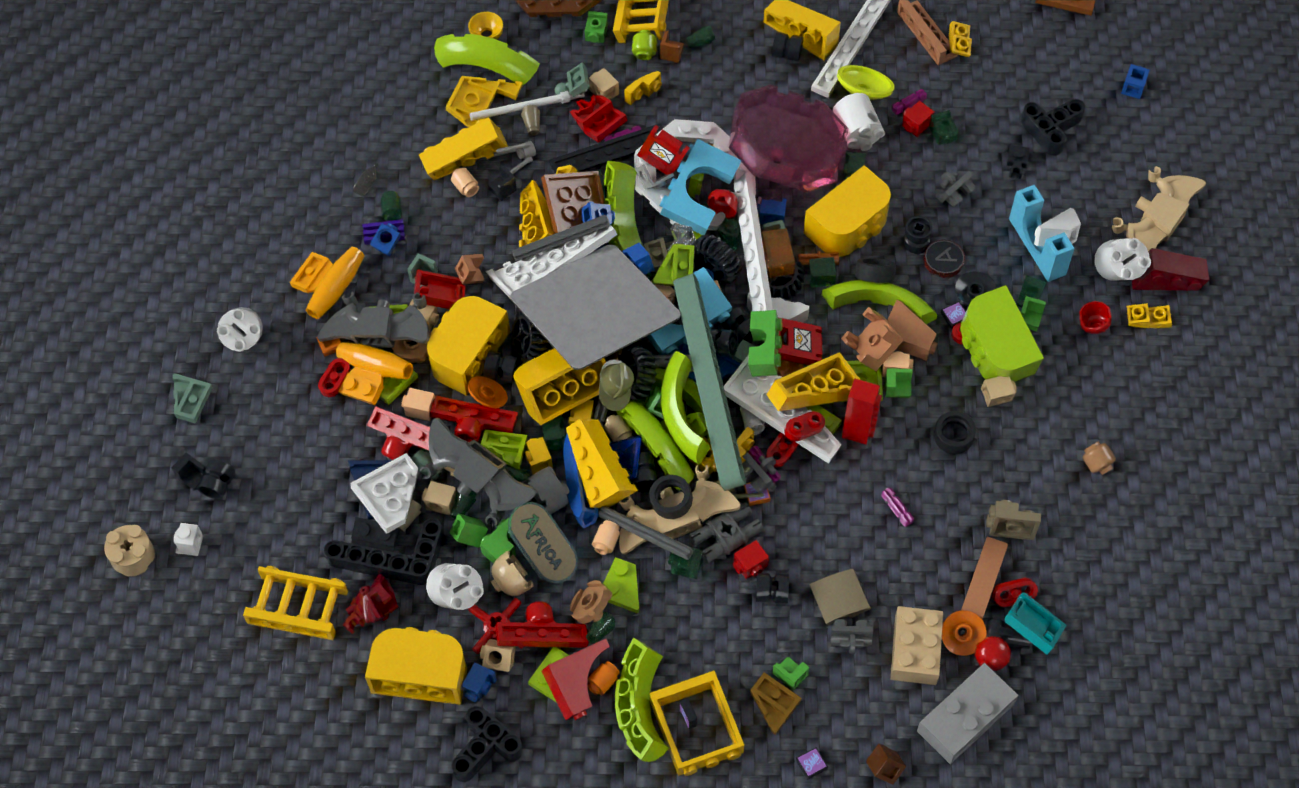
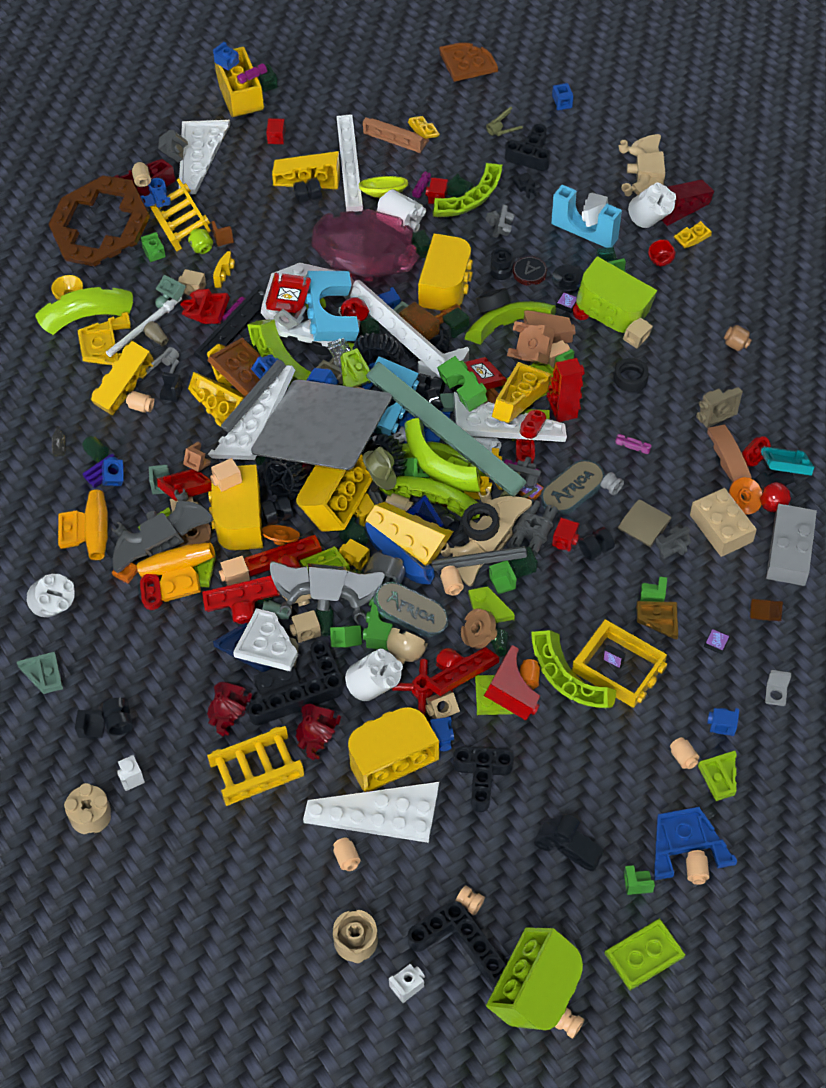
camera: 35 degrees left, 5 degrees down
(308, 739) = (346, 854): none -> light nougat brick
(313, 531) = (227, 706): none -> dark red helmet
(378, 726) = (388, 812): none -> white wing
(467, 305) = (225, 475): none -> light nougat brick
(656, 564) = (502, 577): none -> bright green panel
(701, 37) = (238, 215): clear green cone -> none
(800, 514) = (573, 486): none -> dark tan tile
(840, 535) = (612, 483): none -> light grey wheel
(948, 145) = (472, 199): none -> lime brick
(1036, 77) = (496, 125): none -> olive plant

